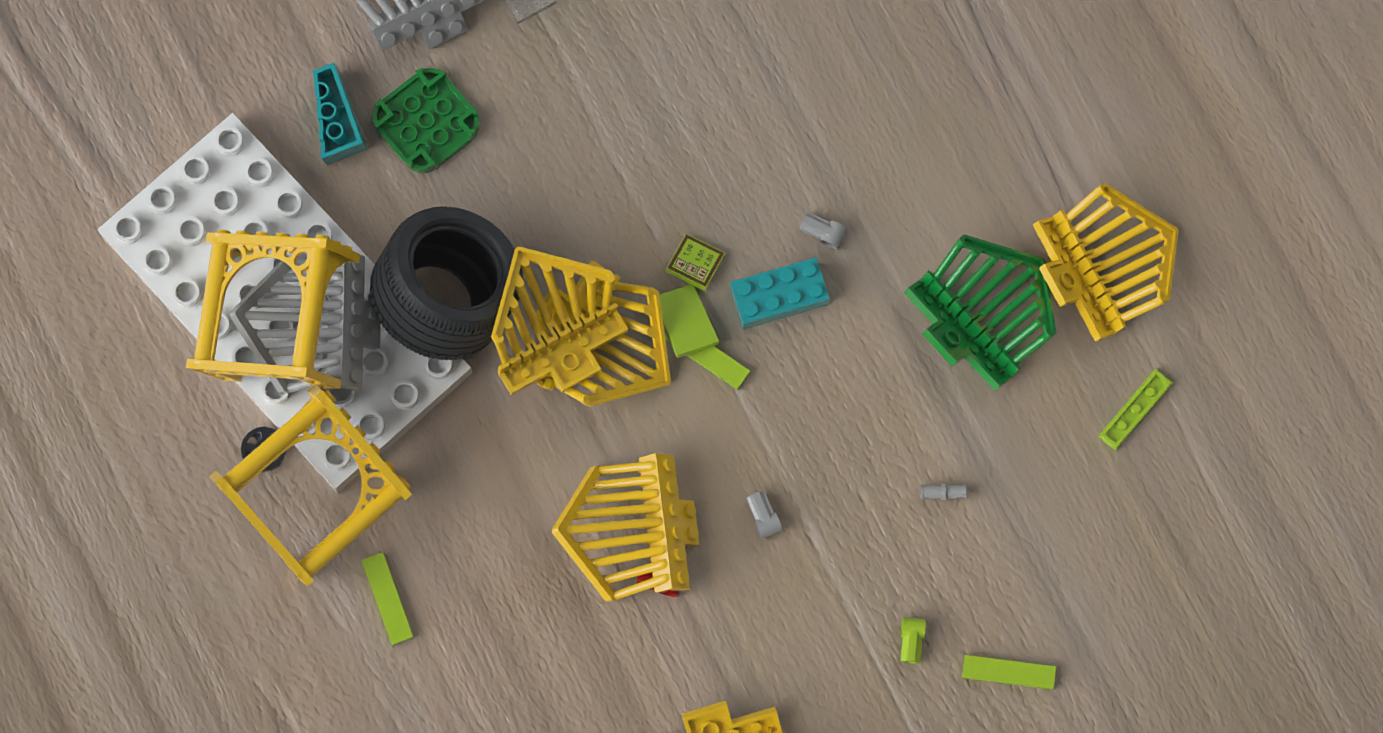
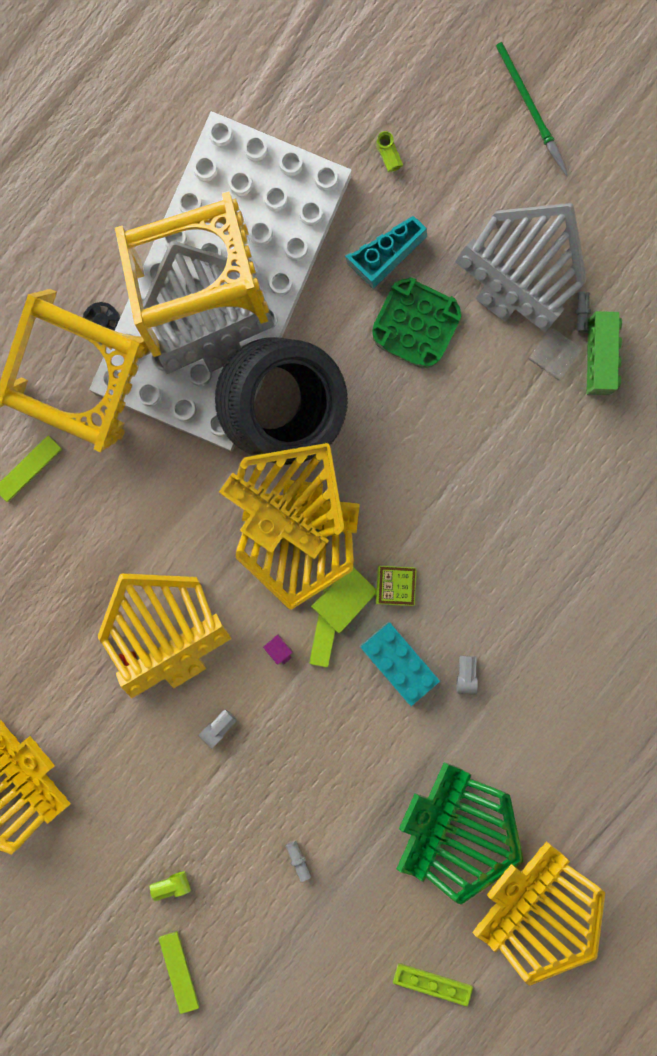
camera: 75 degrees right, 10 degrees up
(232, 68) = (389, 153): none -> lime piece
(708, 413) = (278, 650): none -> magenta brick

